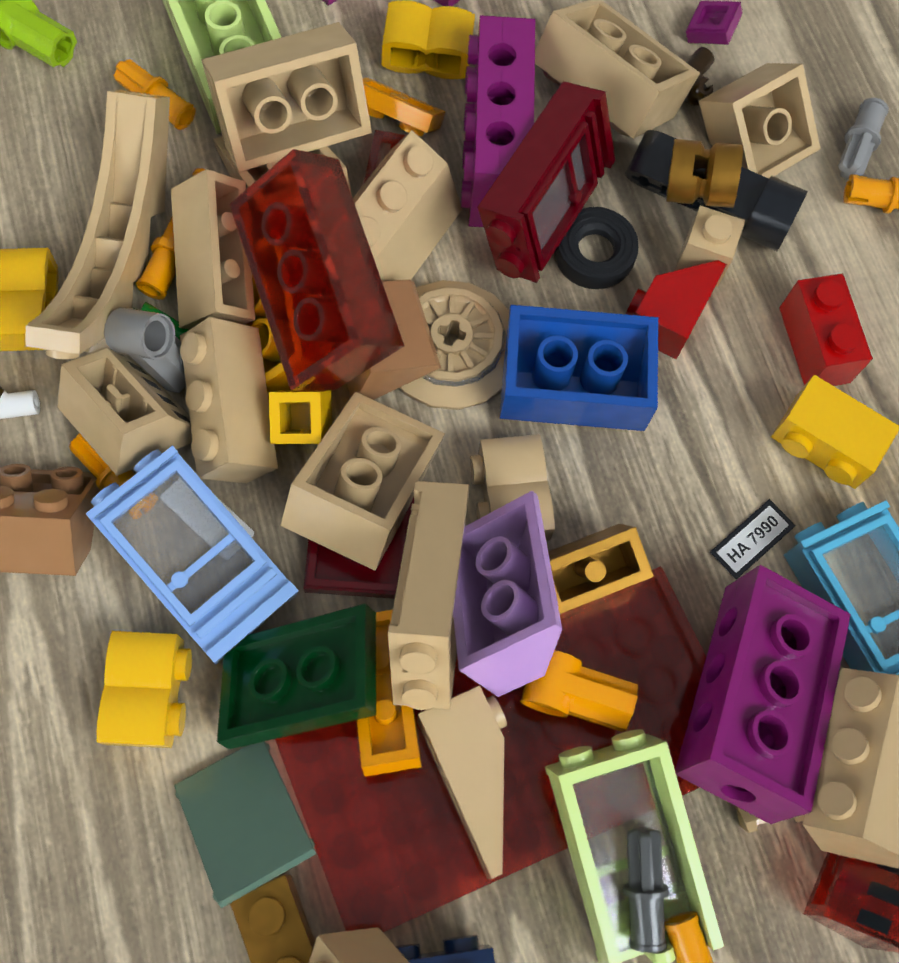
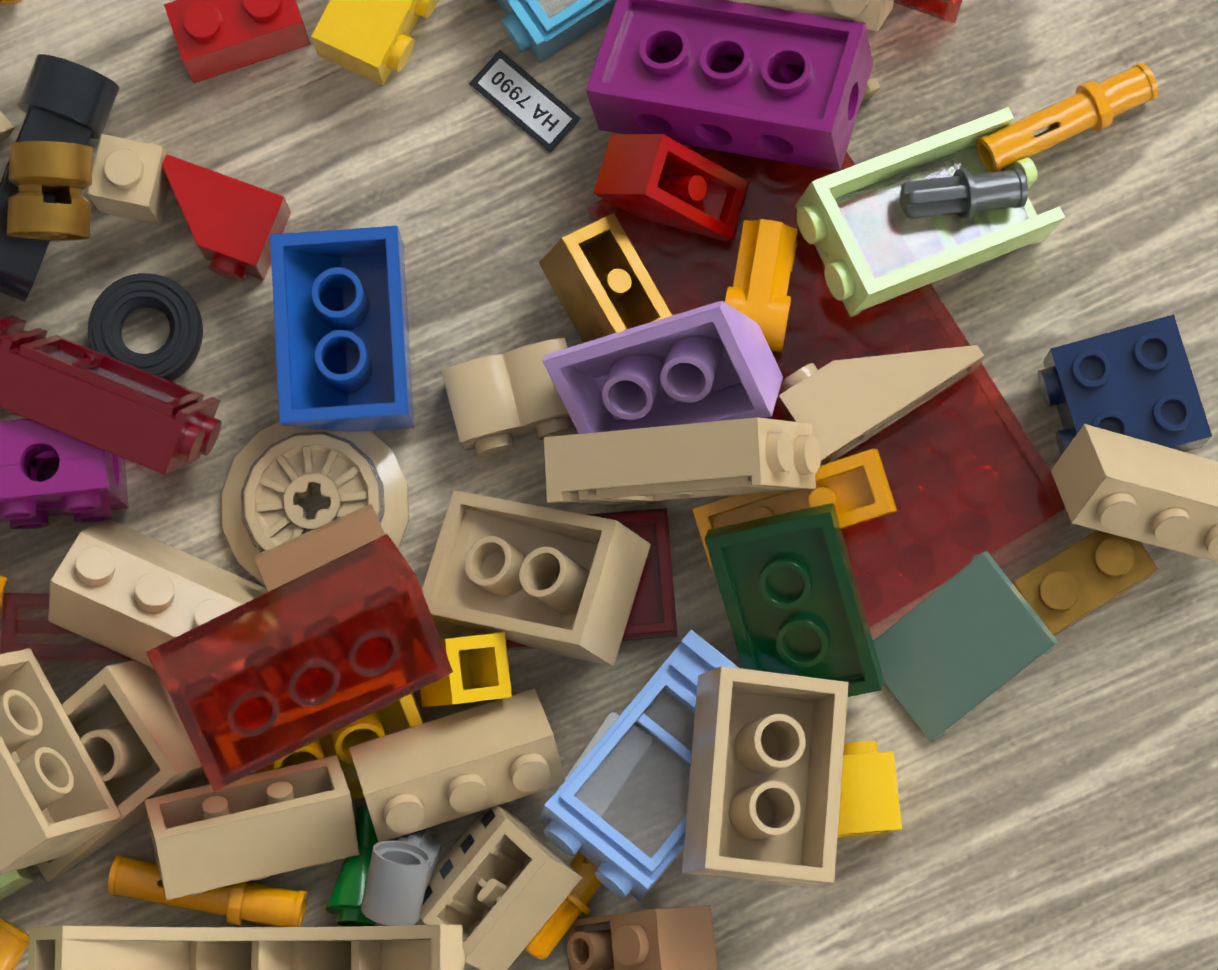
camera: 85 degrees left, 10 degrees up
(145, 618) = (765, 777): none -> tan brick
(673, 630) = (670, 185): none -> red slope

